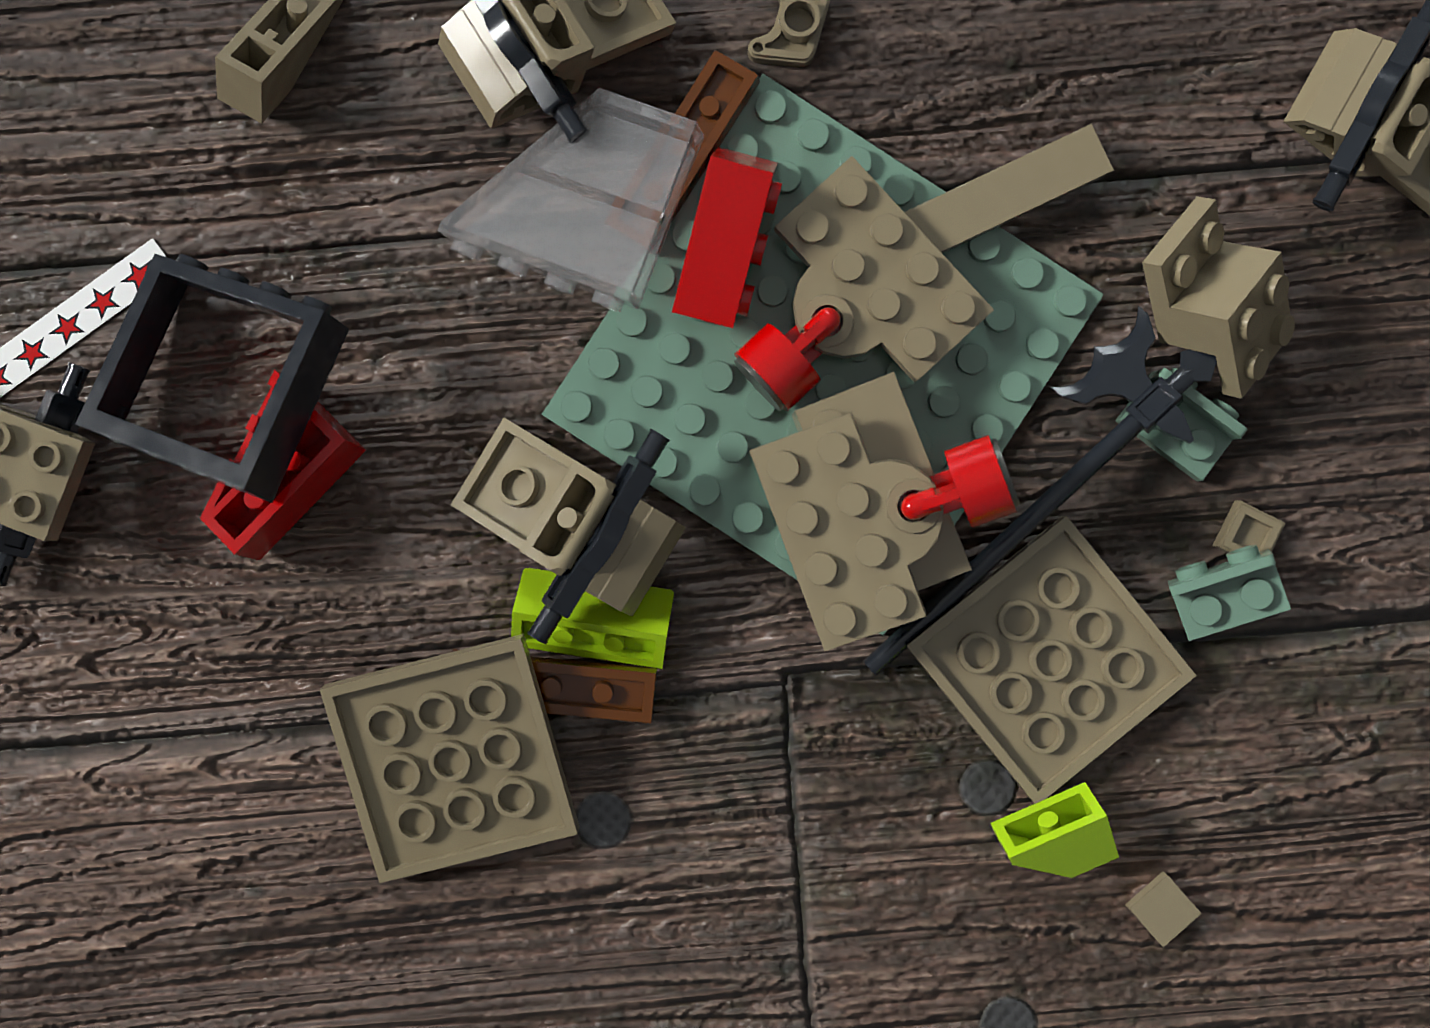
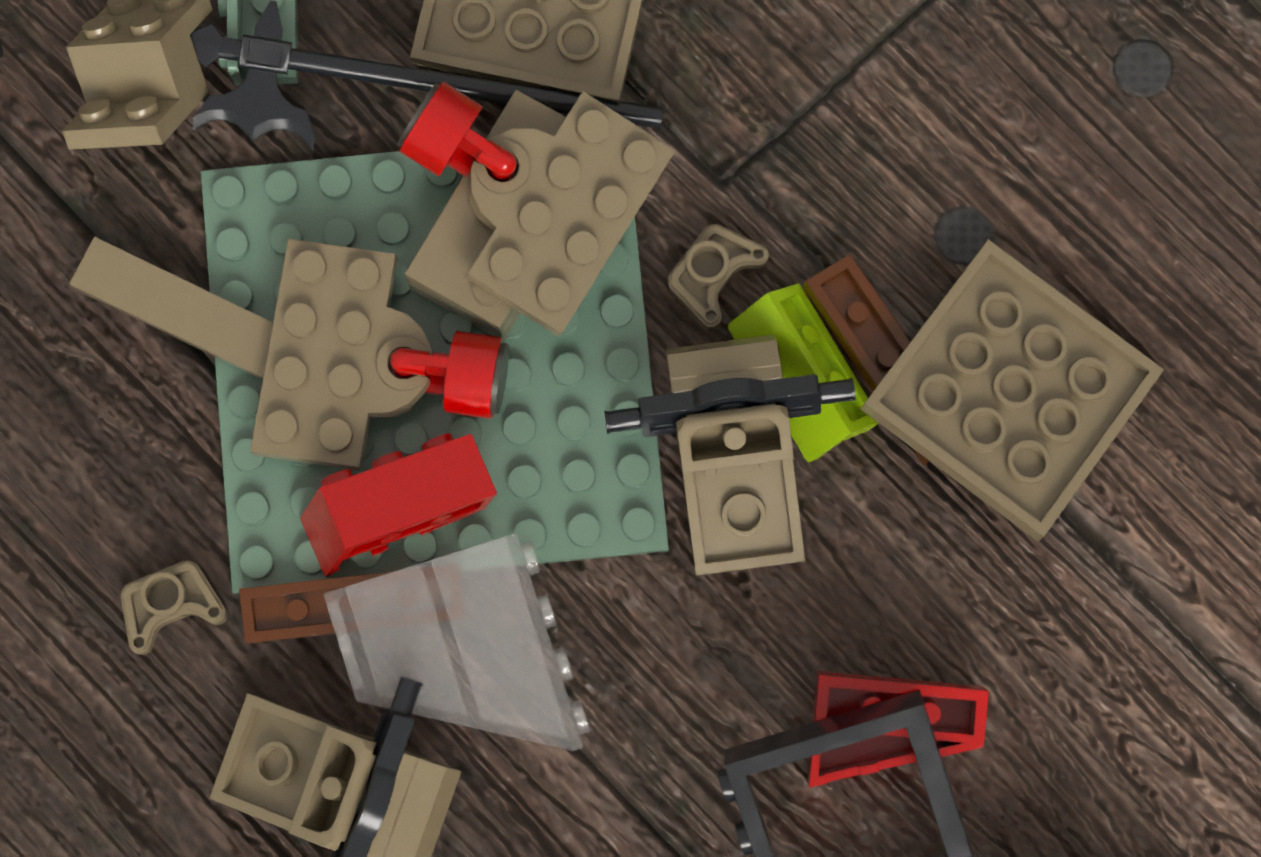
camera: 125 degrees left, 10 degrees down
(727, 611) = (709, 267): none -> dark tan piece

